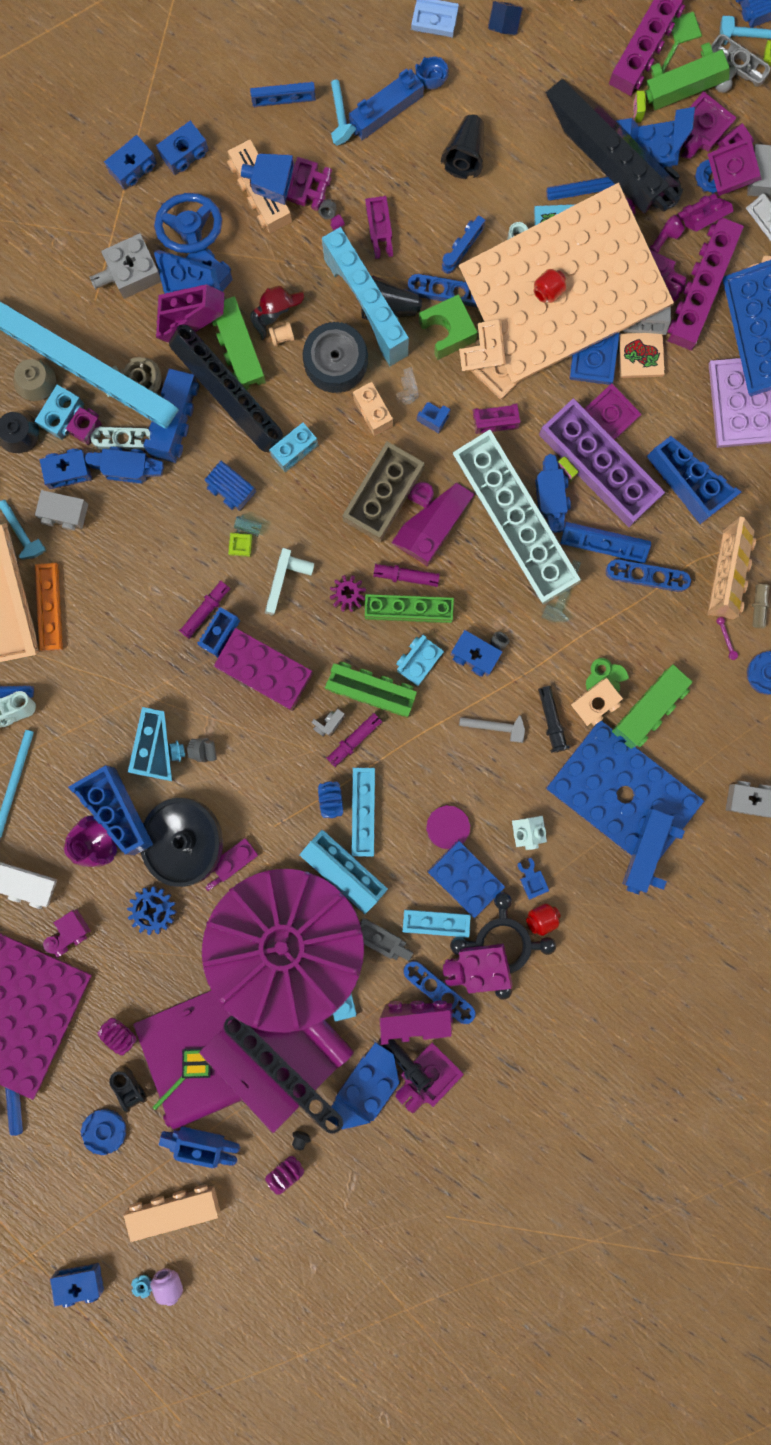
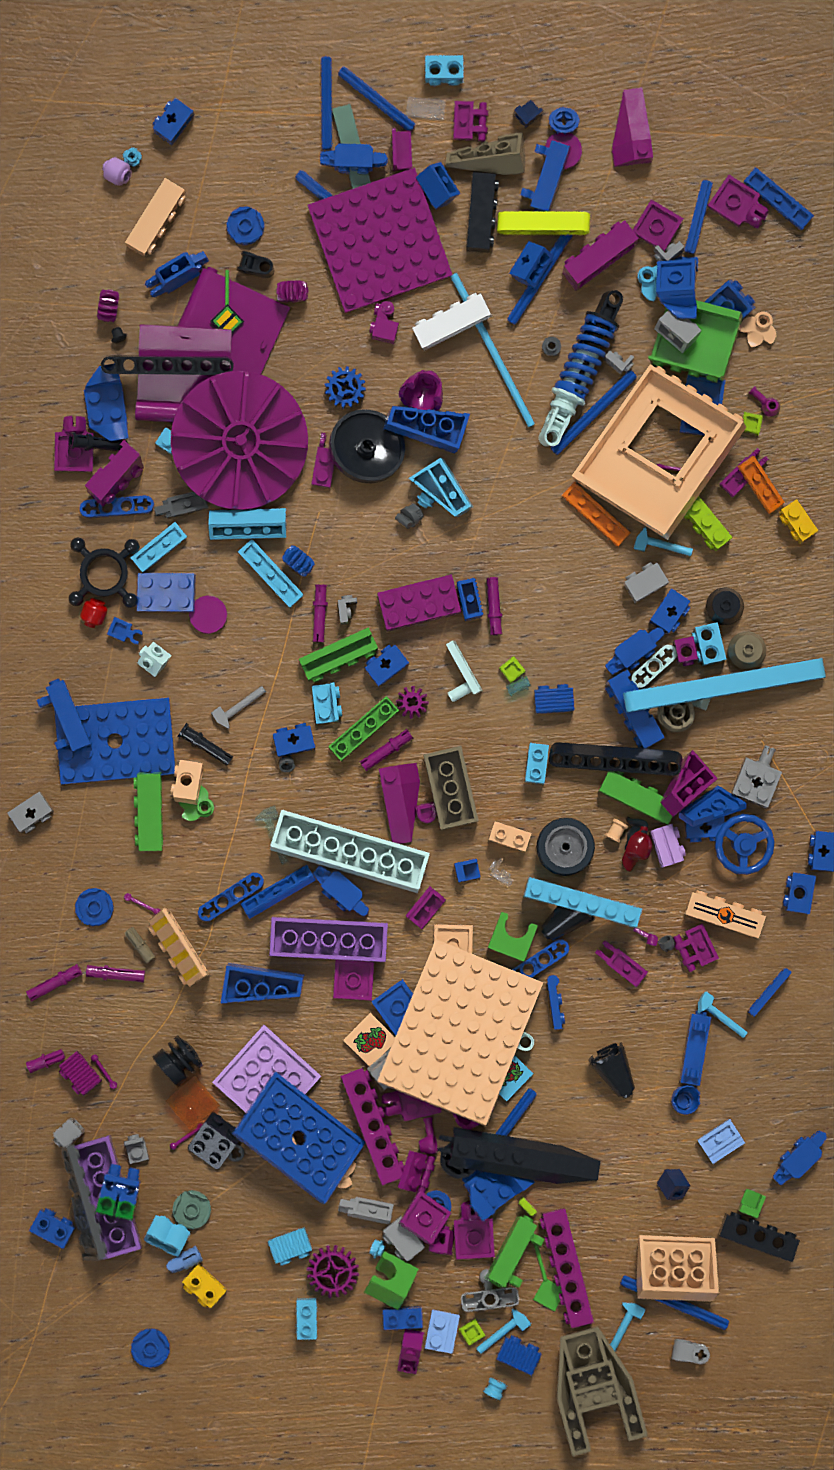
camera: 130 degrees right, 0 degrees up
(252, 283) = (667, 845): none -> lavender brick
(270, 176) = (718, 923): blue torso -> none
(330, 636) = (396, 664): none -> blue brick
(479, 969) = (105, 543): magenta plate -> none
(490, 351) = (468, 942): light nougat plate -> none
(549, 285) = (467, 1016): red head -> none
(568, 468) = (347, 916): lime tile -> none

